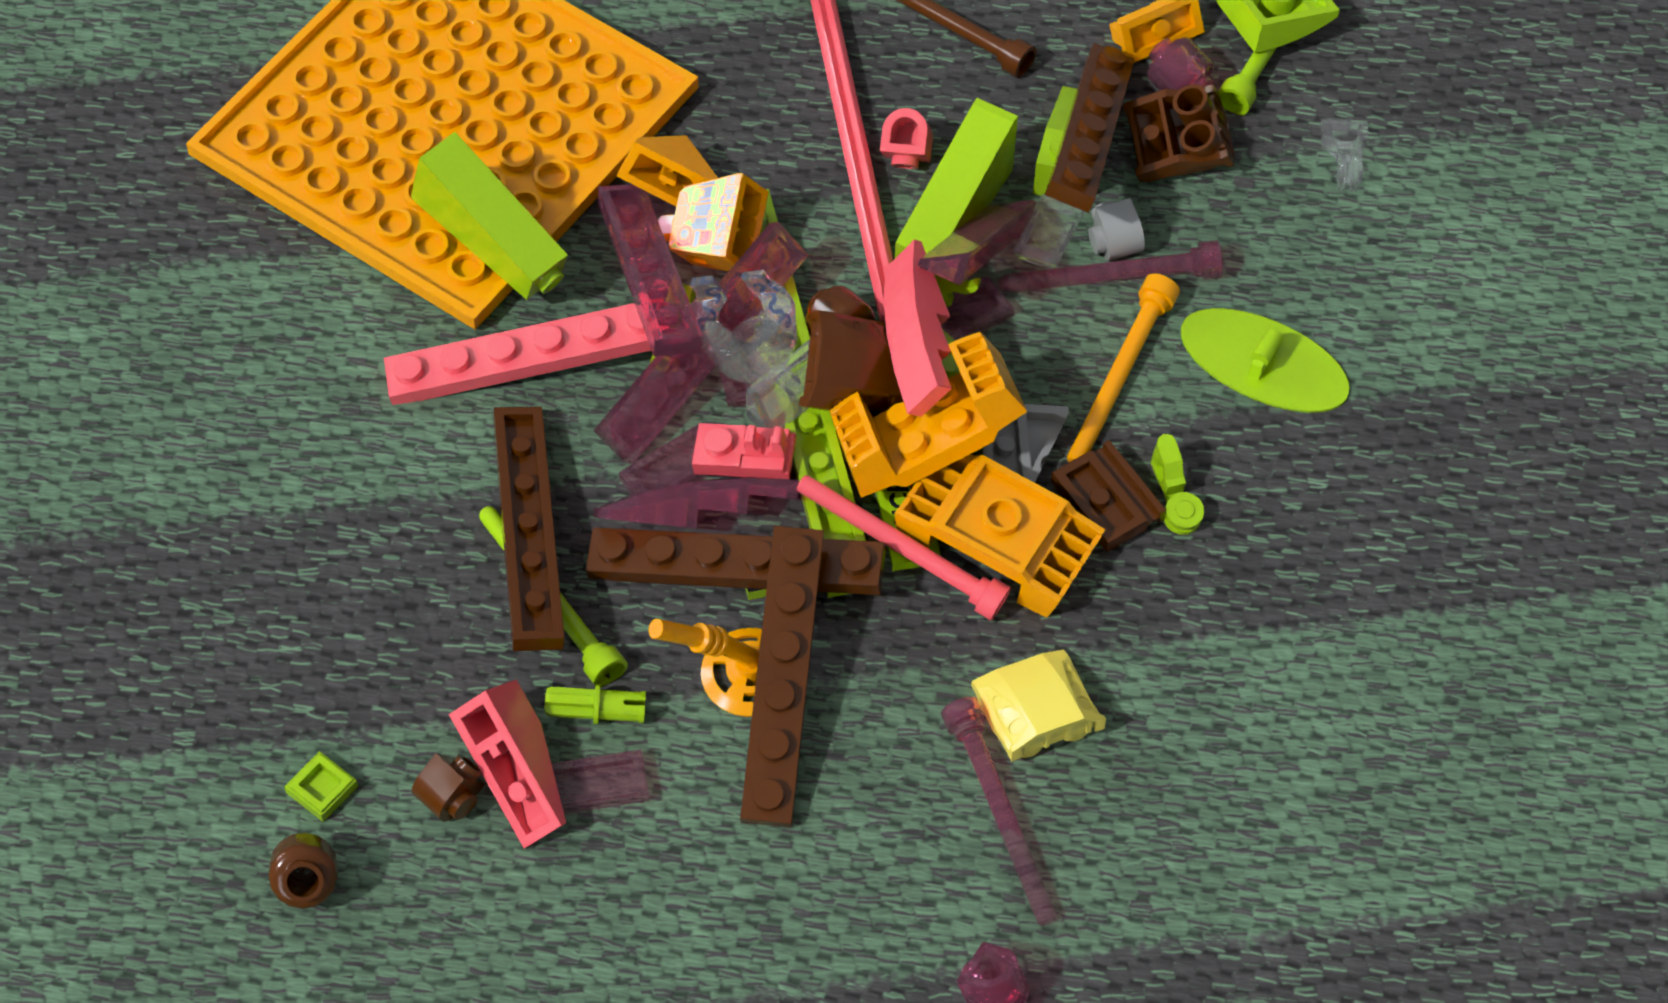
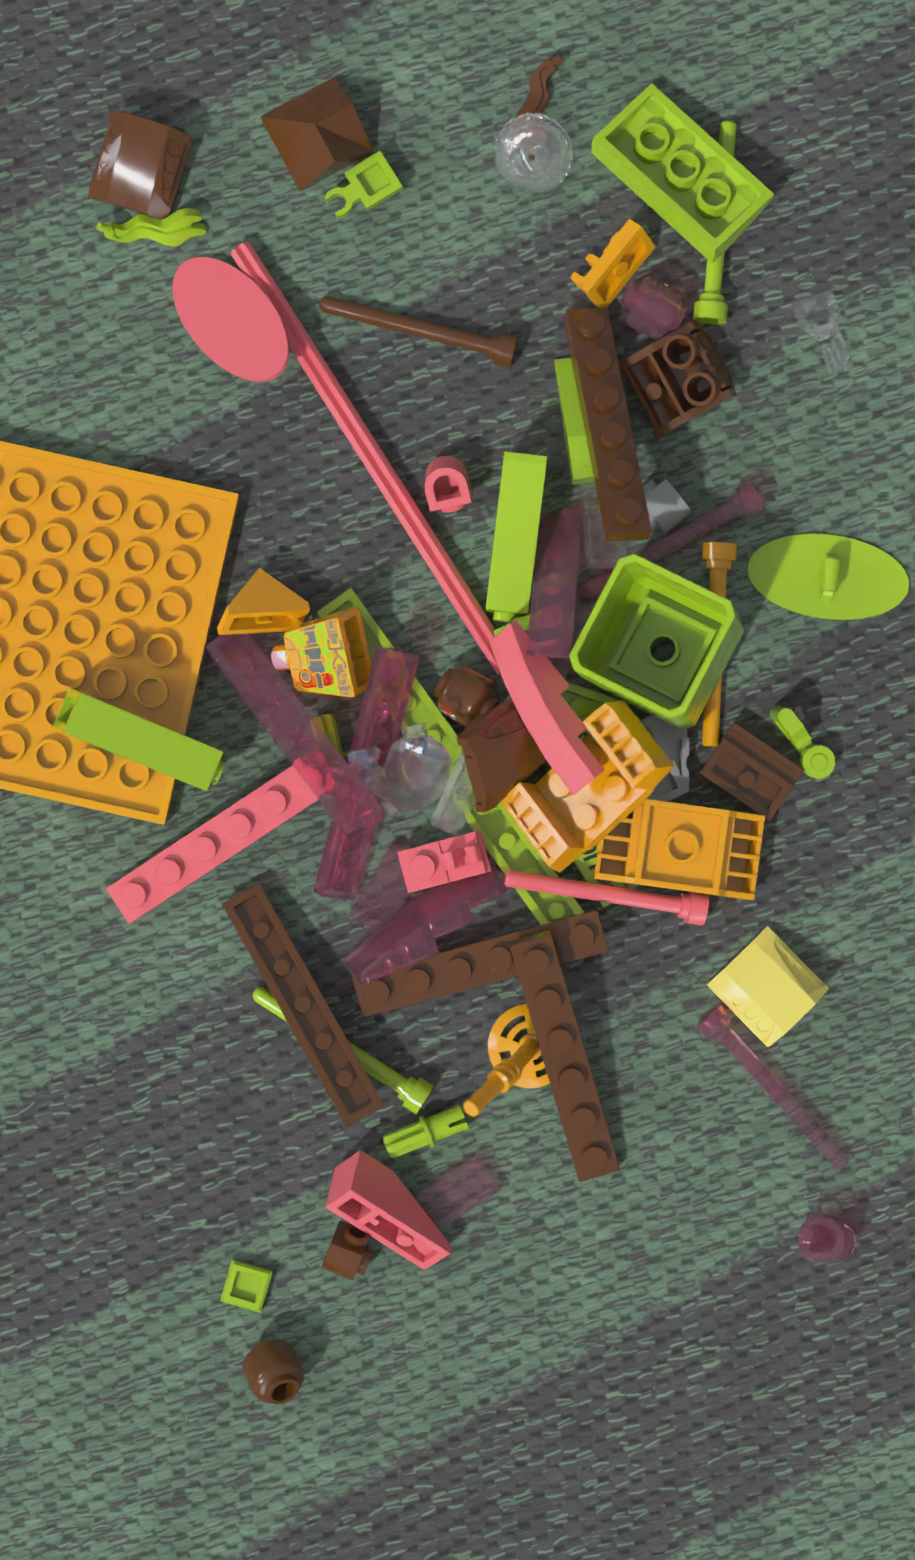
camera: 20 degrees left, 30 degrees up
(1062, 313) = (634, 613): none -> lime plate

